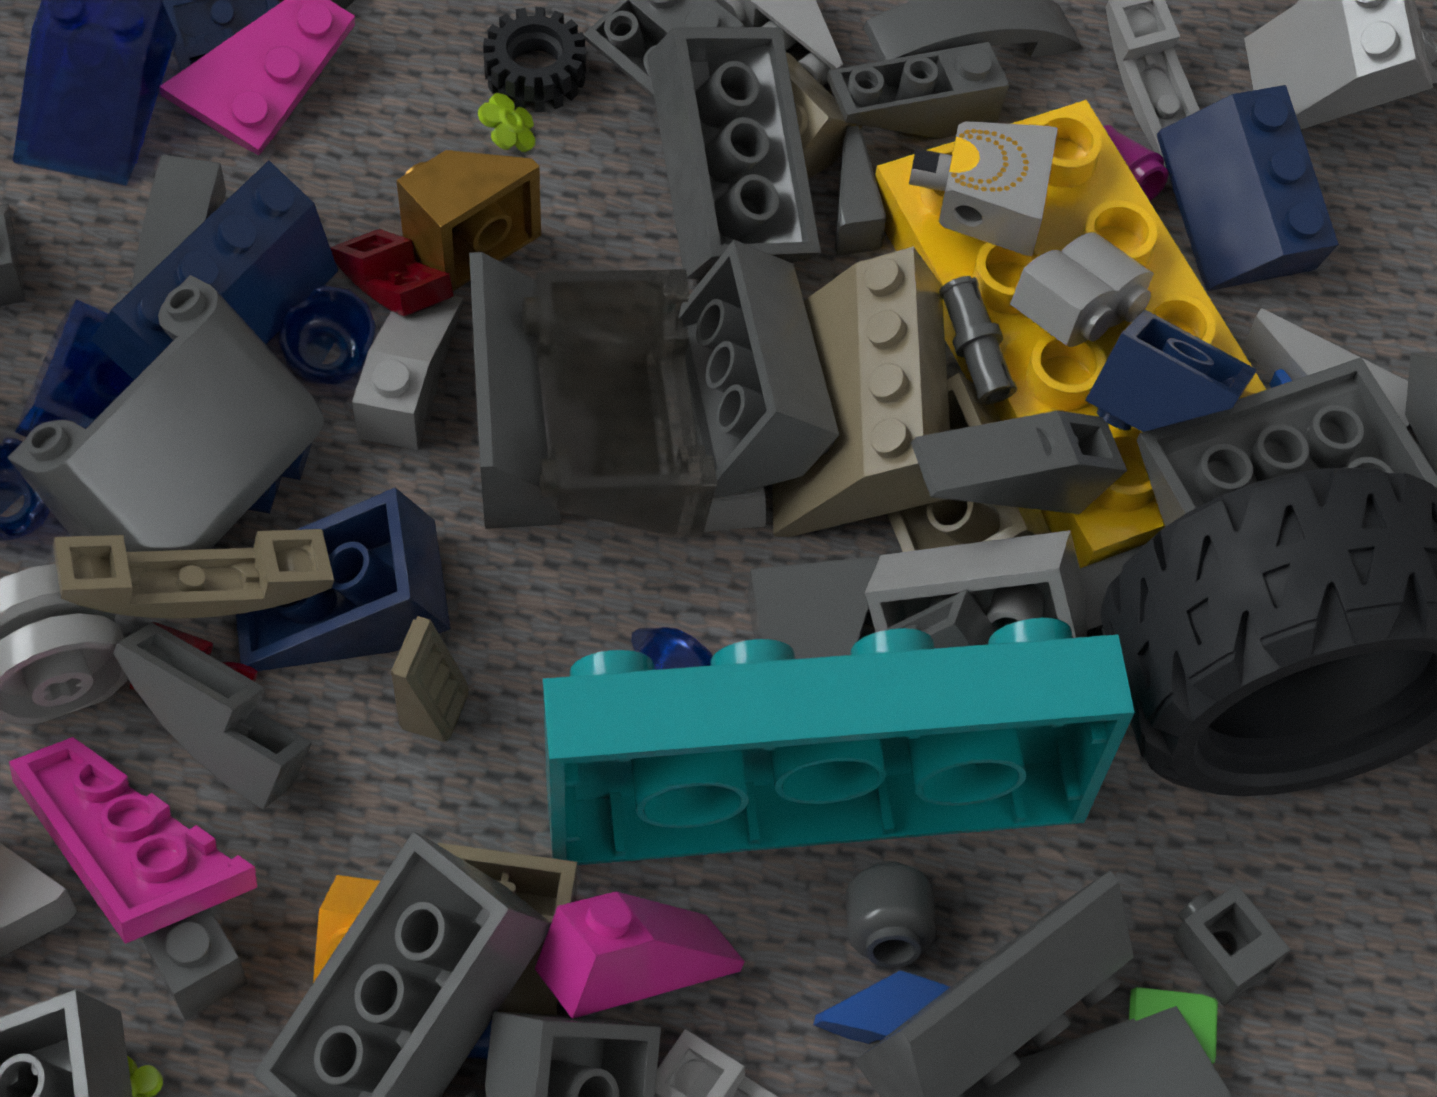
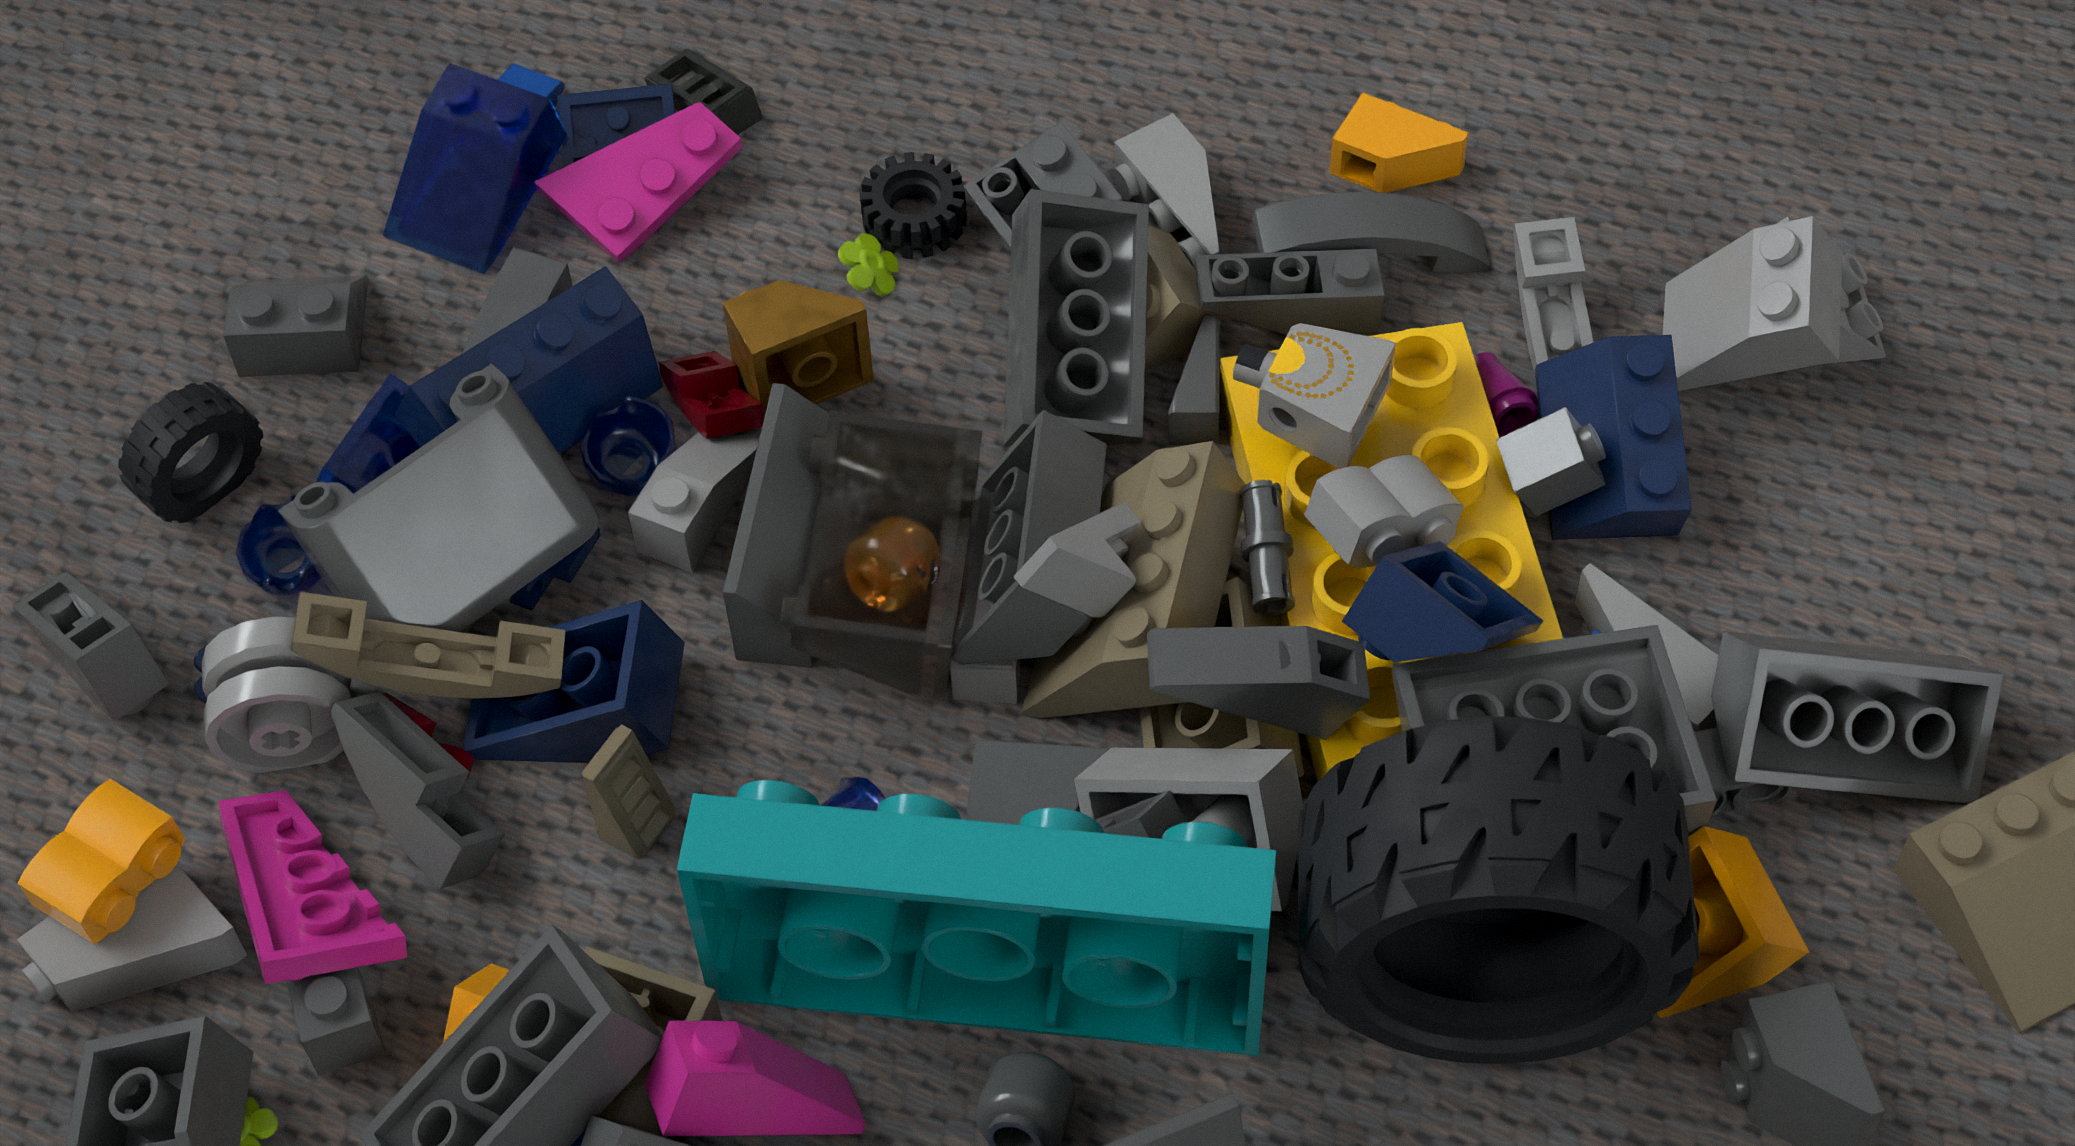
camera: 20 degrees right, 5 degrees down
(630, 408) = (895, 563): none -> clear orange head
(831, 386) = (1084, 563): none -> light grey slope
(1207, 217) = (1552, 461): none -> brick

